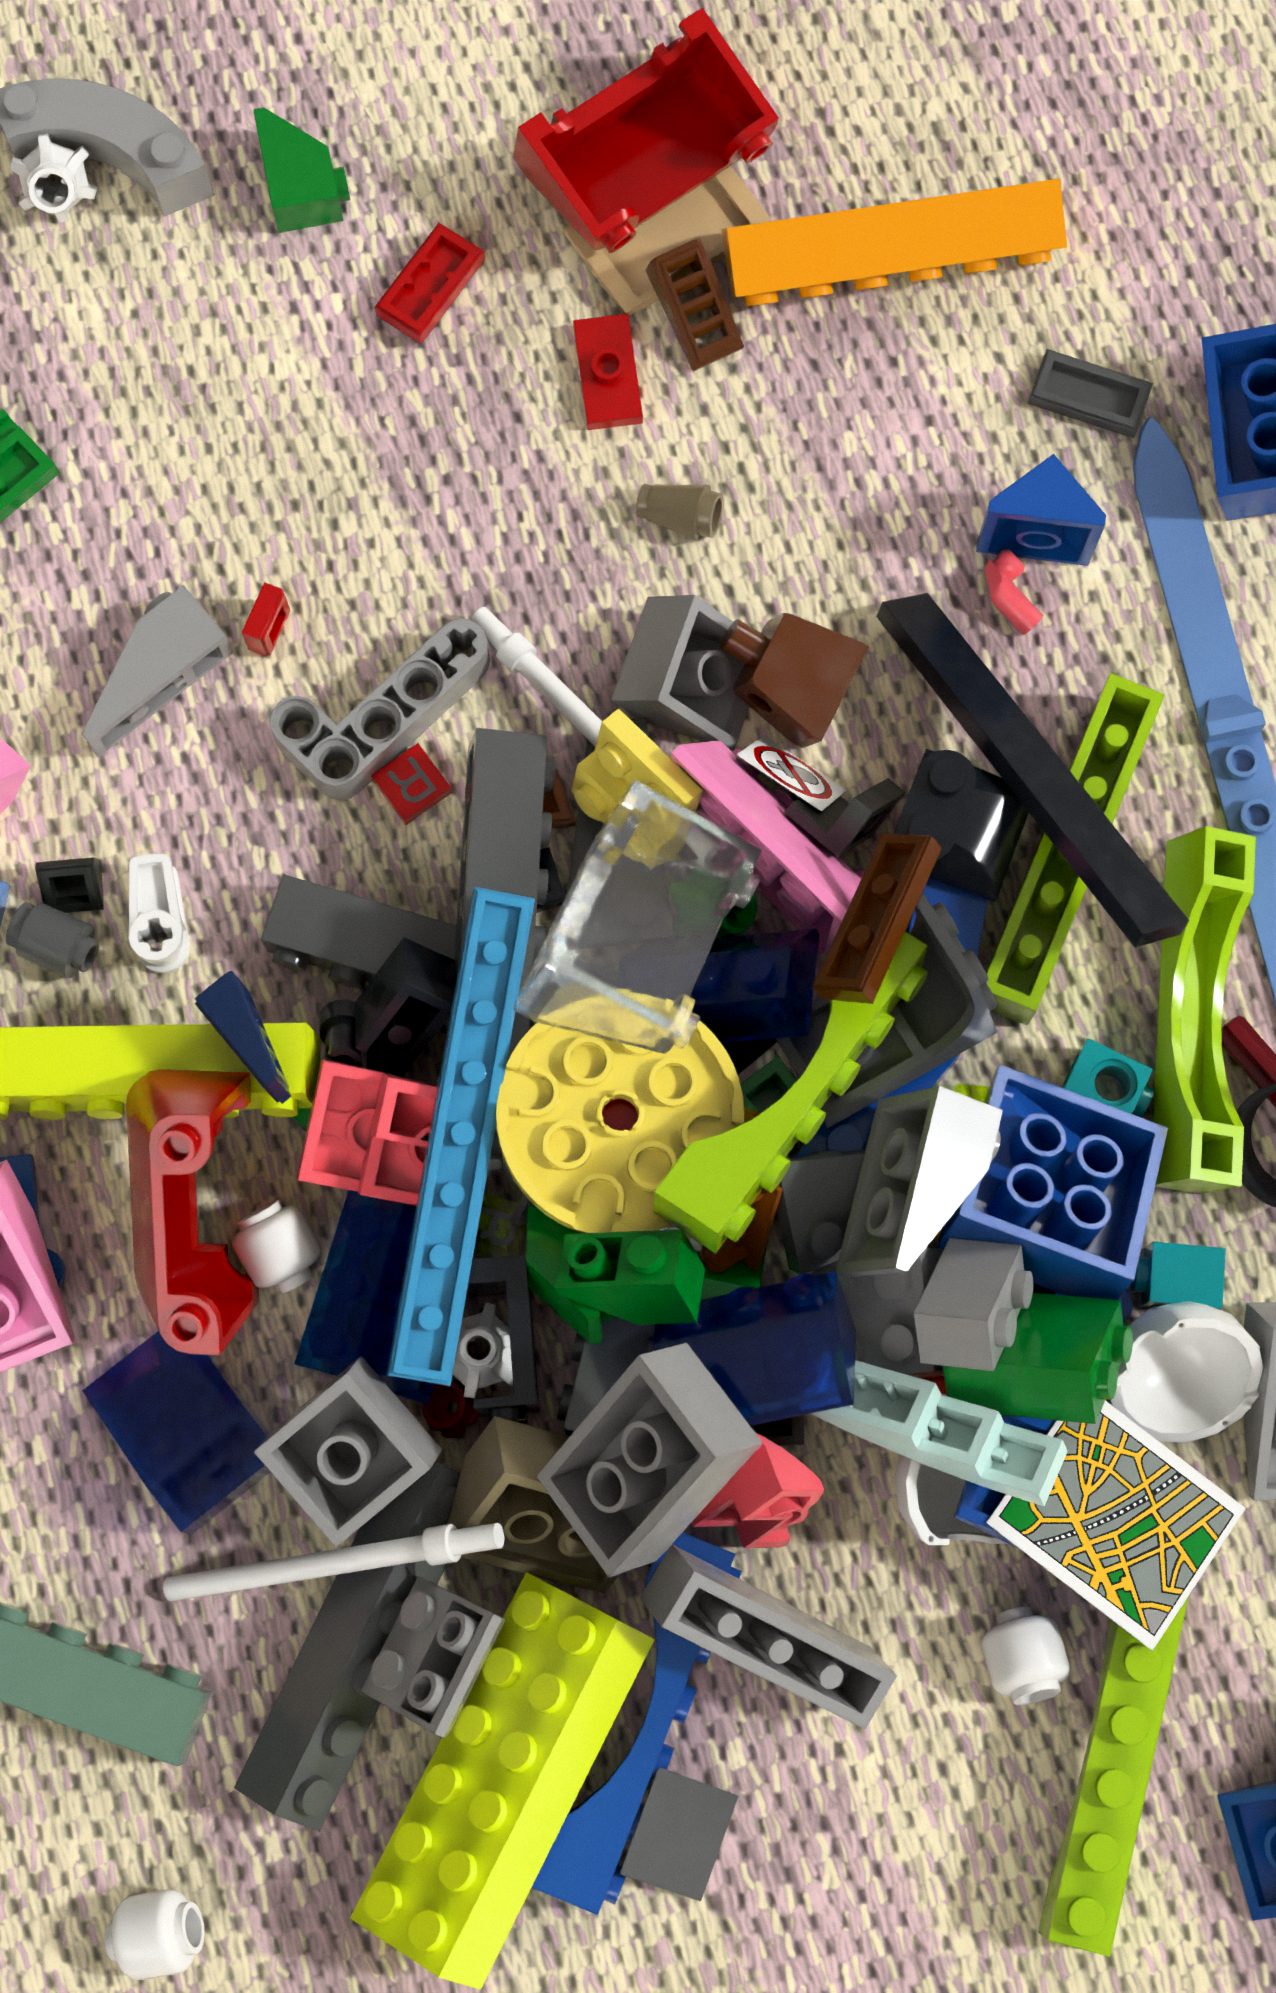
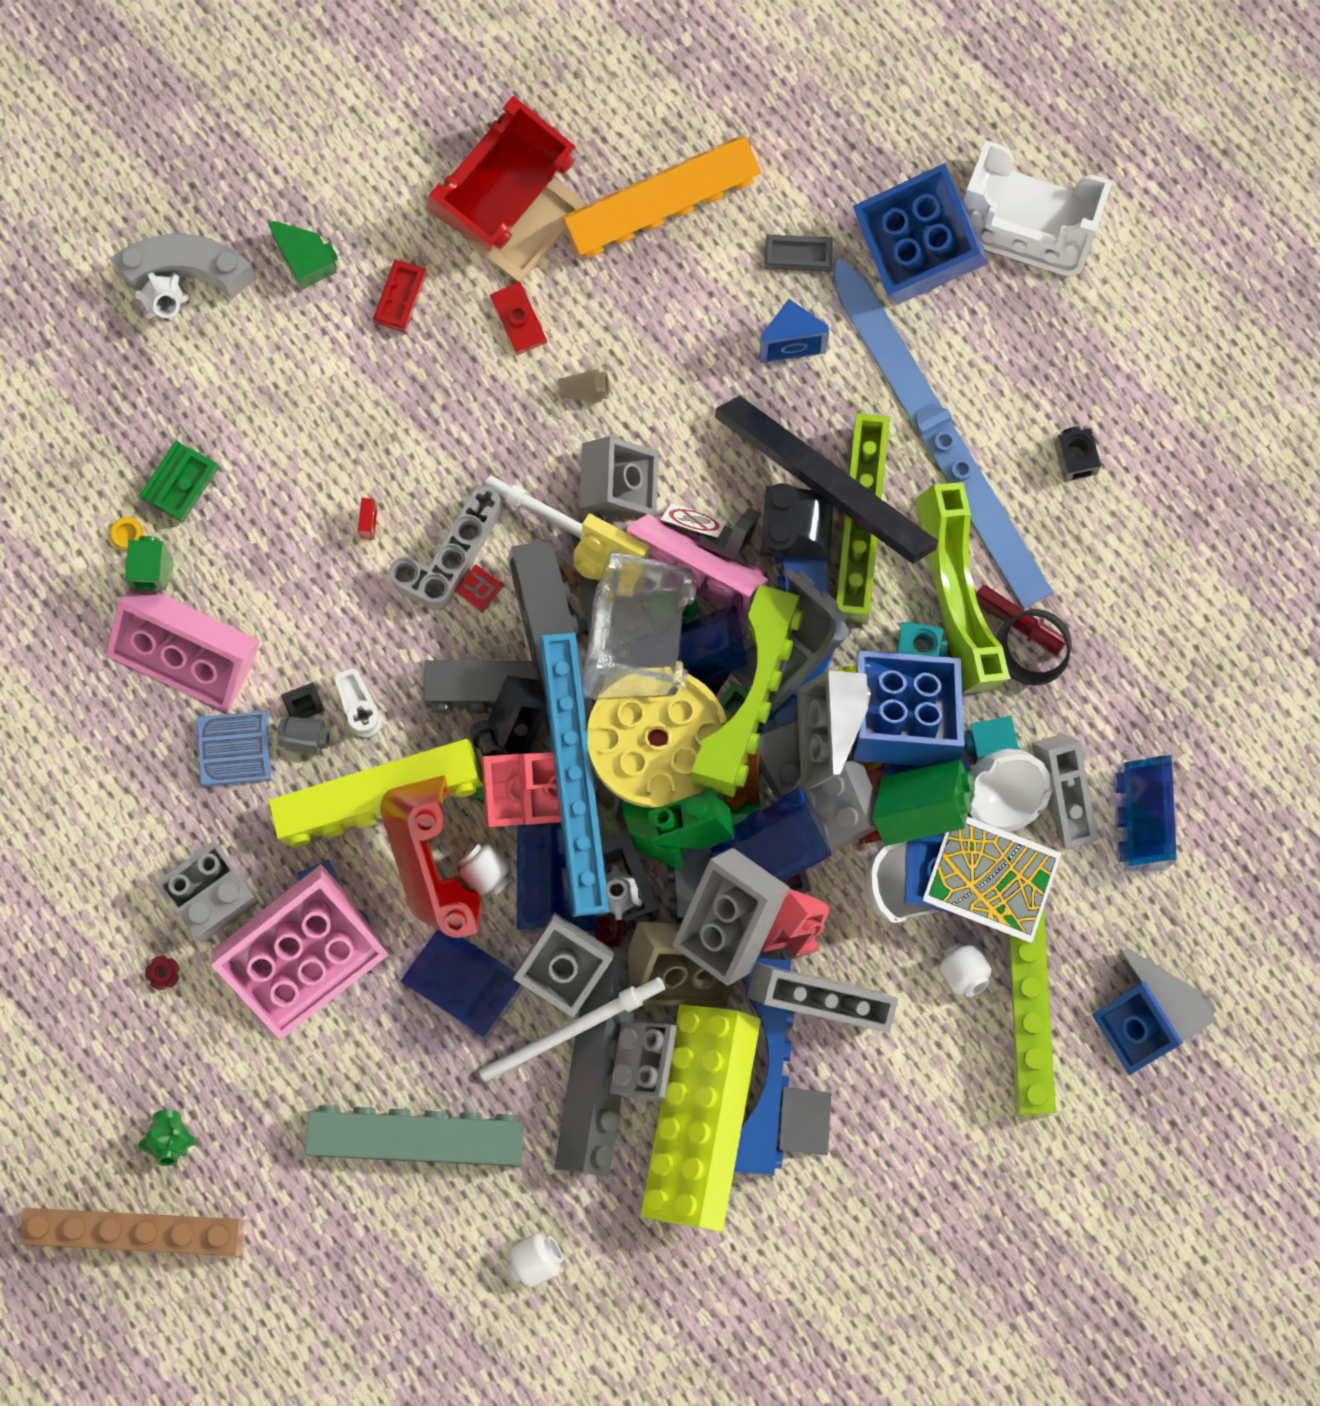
camera: 15 degrees left, 0 degrees up
(160, 660) = (315, 556): light grey slope -> none
(237, 1020) = (429, 749): dark blue slope -> none
(705, 277) = (567, 258): reddish brown slope -> none
(793, 673) = (678, 463): reddish brown torso -> none
(877, 918) = (767, 588): reddish brown tile -> none
(949, 1434) = (887, 858): light aqua slope -> none
(972, 1304) = (880, 784): light grey brick -> none
(1006, 595) = (783, 383): coral arm -> none

